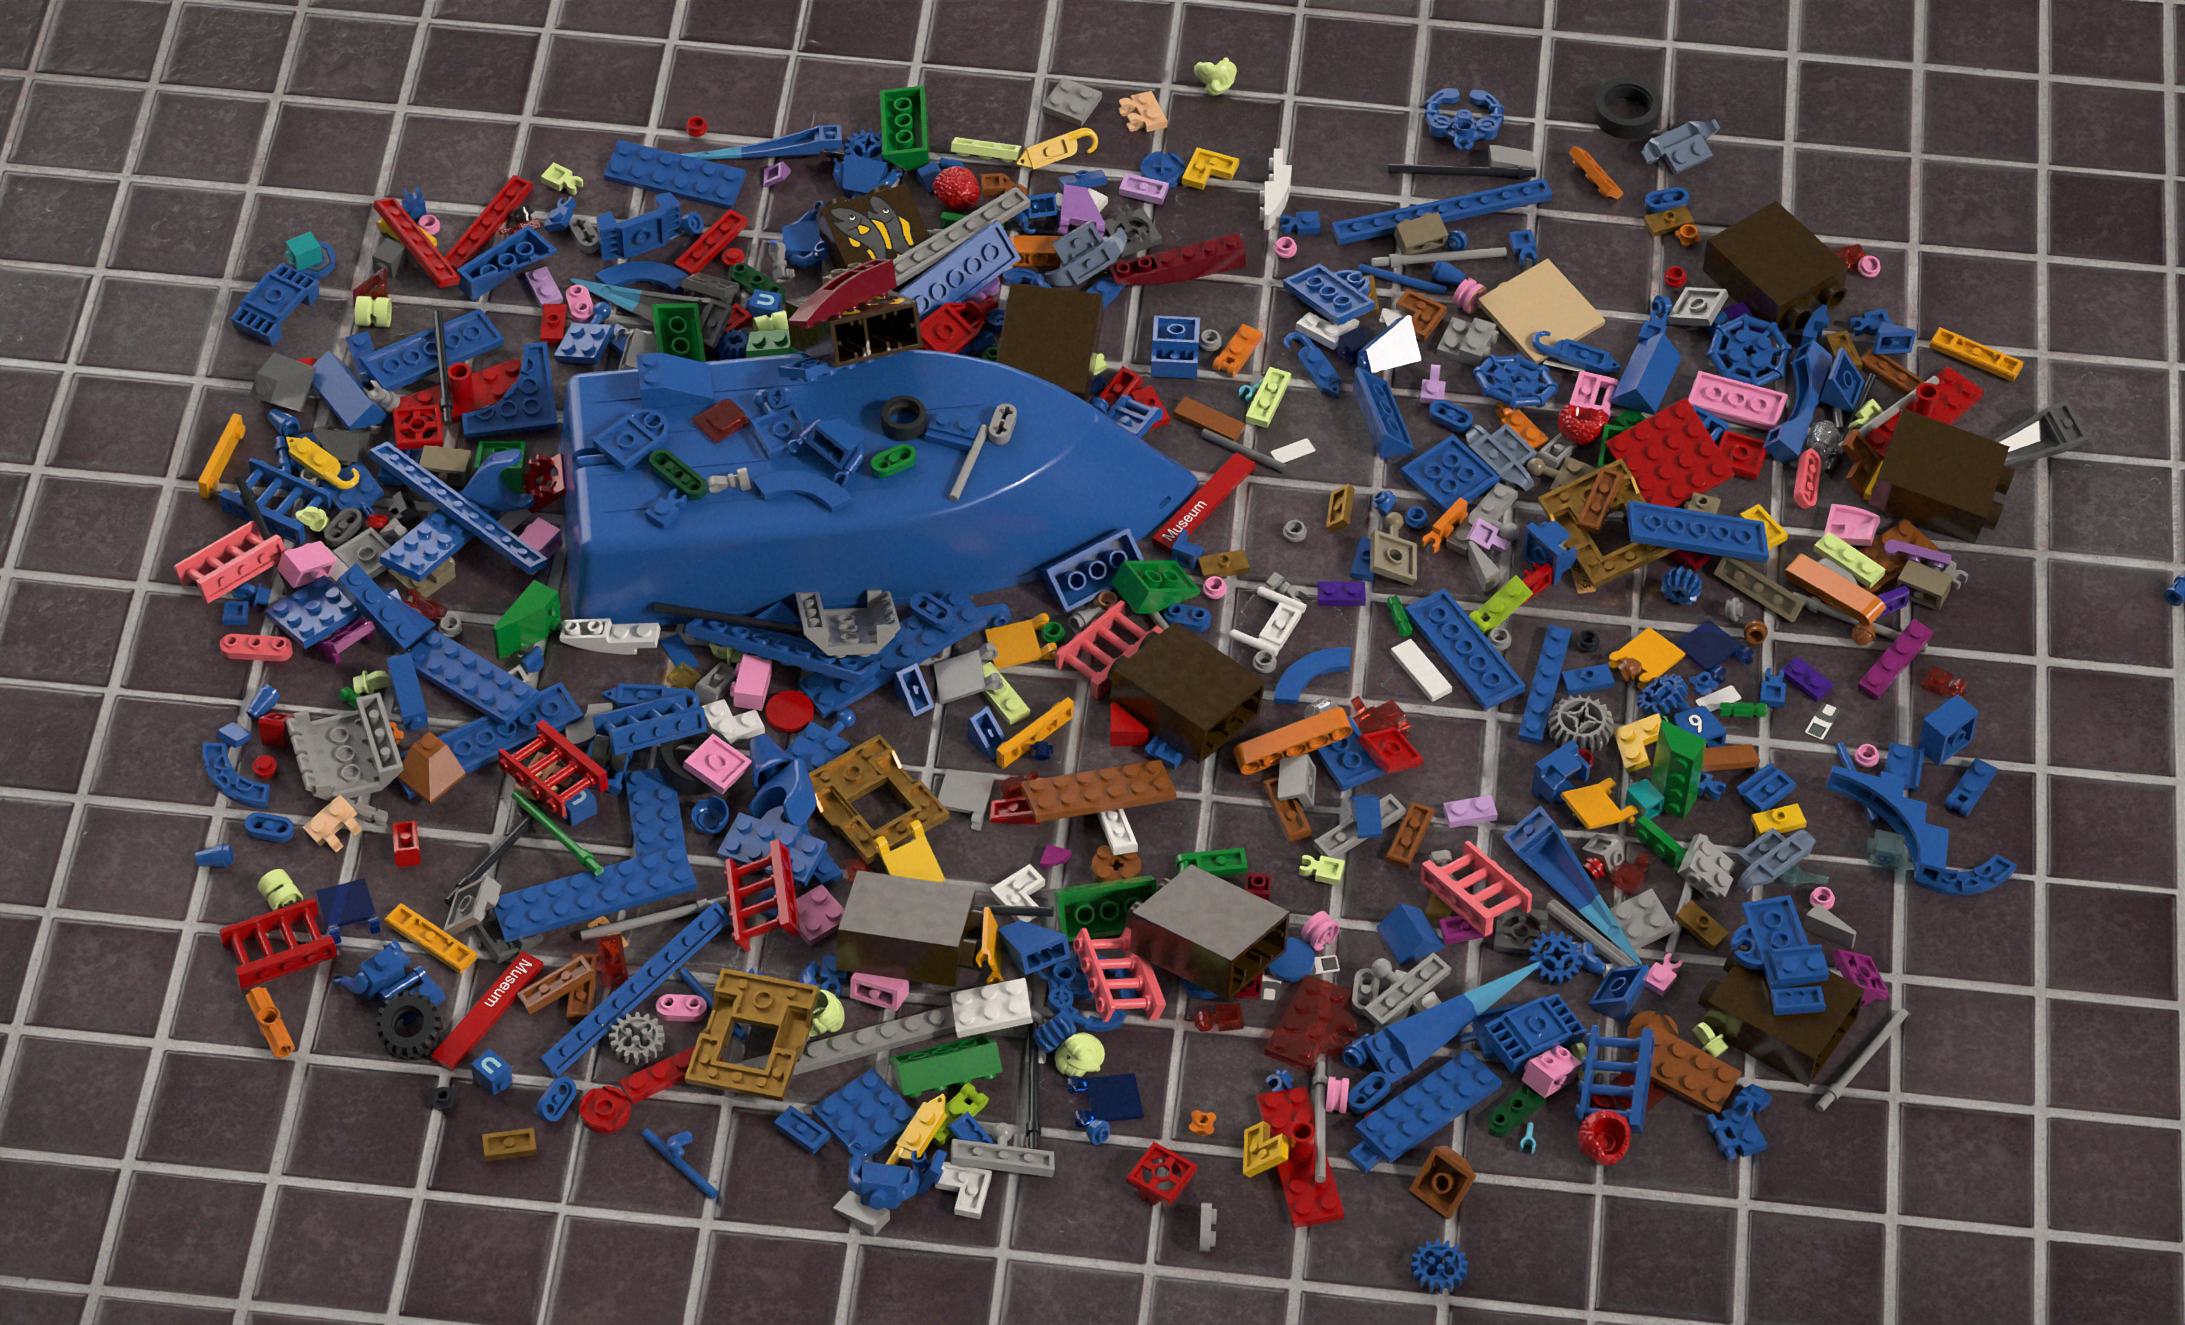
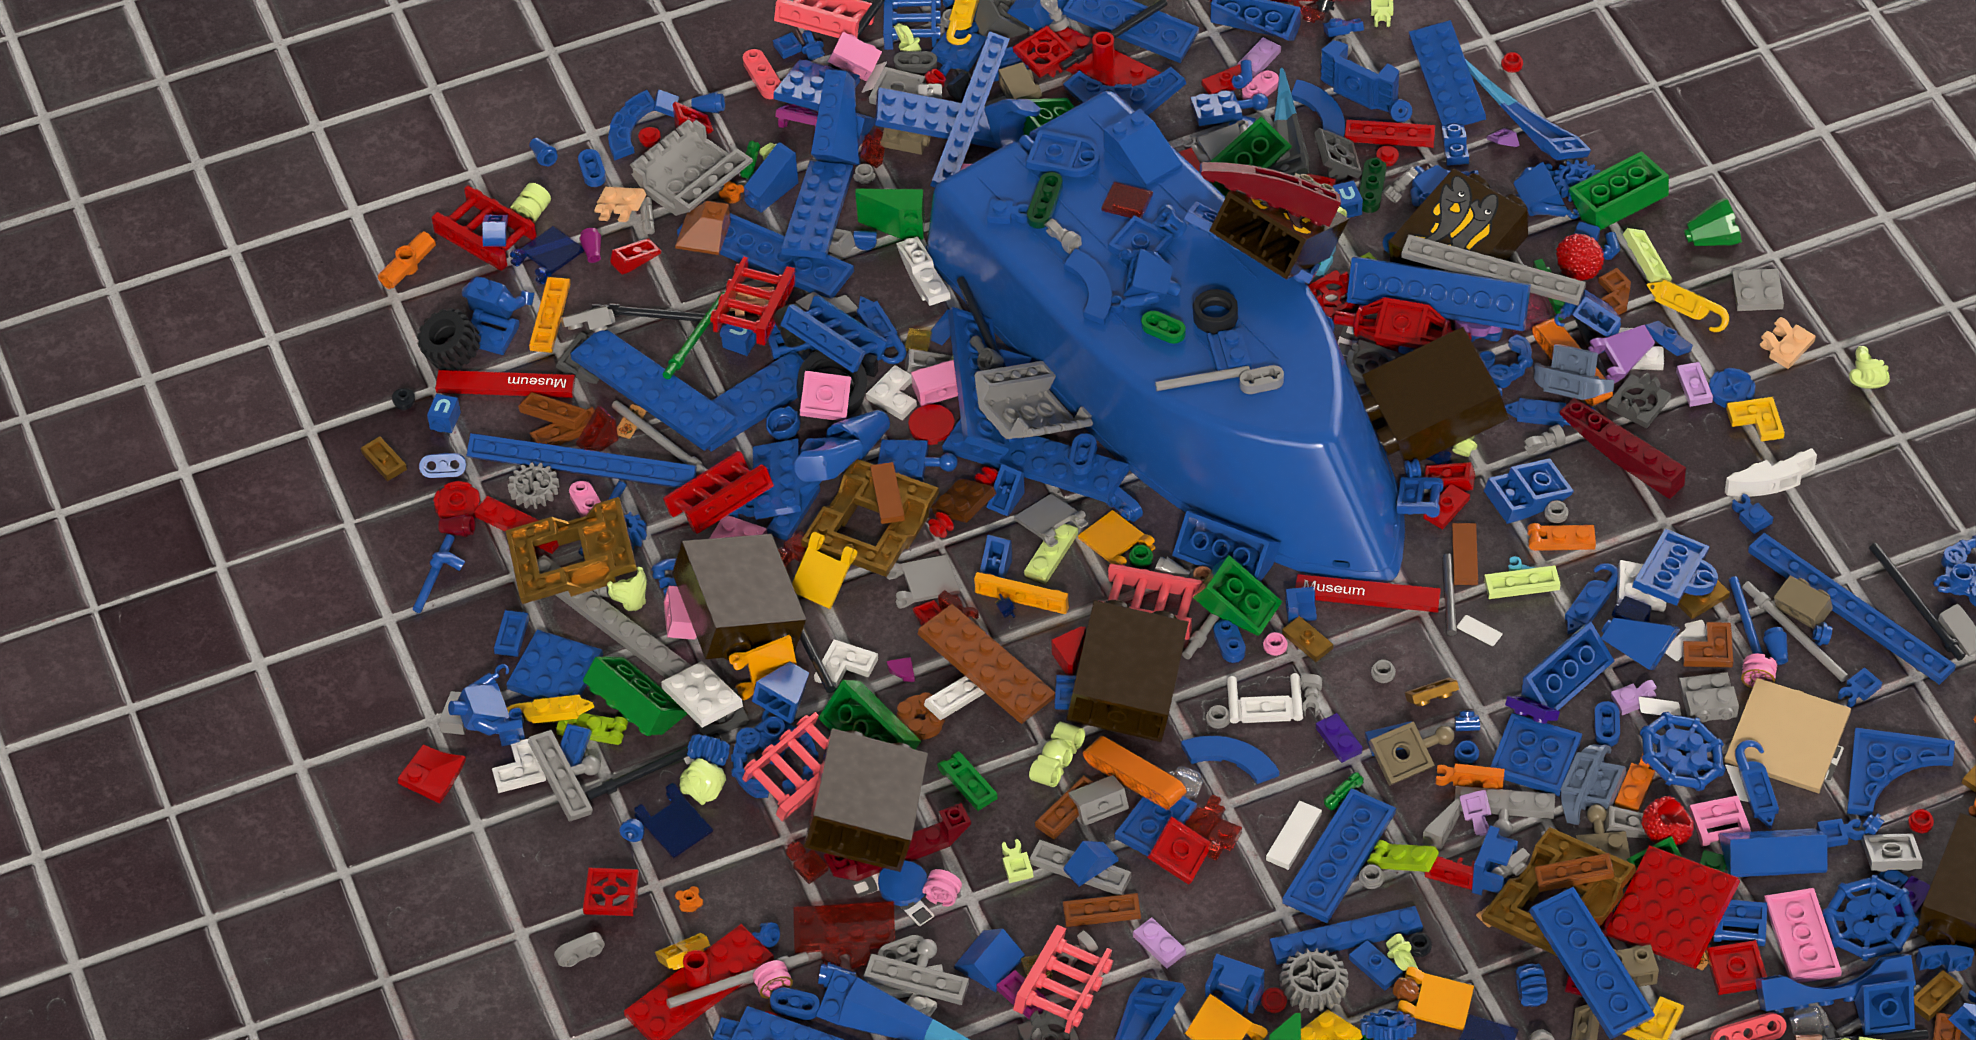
camera: 65 degrees right, 0 degrees up
(307, 925) = (495, 230): none -> blue plate
(367, 868) = (591, 243): none -> magenta cone
(566, 305) = (1245, 76): none -> blue arm
(639, 1118) = (458, 525): none -> dark red cone
(755, 209) = (1455, 144): none -> blue slope
(763, 626) = (987, 357): none -> dark grey bar
(862, 771) = (887, 493): none -> dark orange tile
(902, 725) = (962, 501): none -> reddish brown plate
(920, 1260) = (432, 773): none -> red plate
(992, 87) = (1714, 226): none -> green cone
(1131, 302) = (1555, 434): none -> light grey piece
(1231, 787) = (1057, 754): none -> yellowish green piece
(1285, 247) = (1710, 510): bright pink plate -> none
(1415, 448) = (1525, 707): none -> dark purple plate
(1456, 375) = (1658, 706): none -> white sticker
(1584, 654) = (1400, 952): none -> yellowish green piece
(1602, 268) = (1884, 756): none -> blue plate

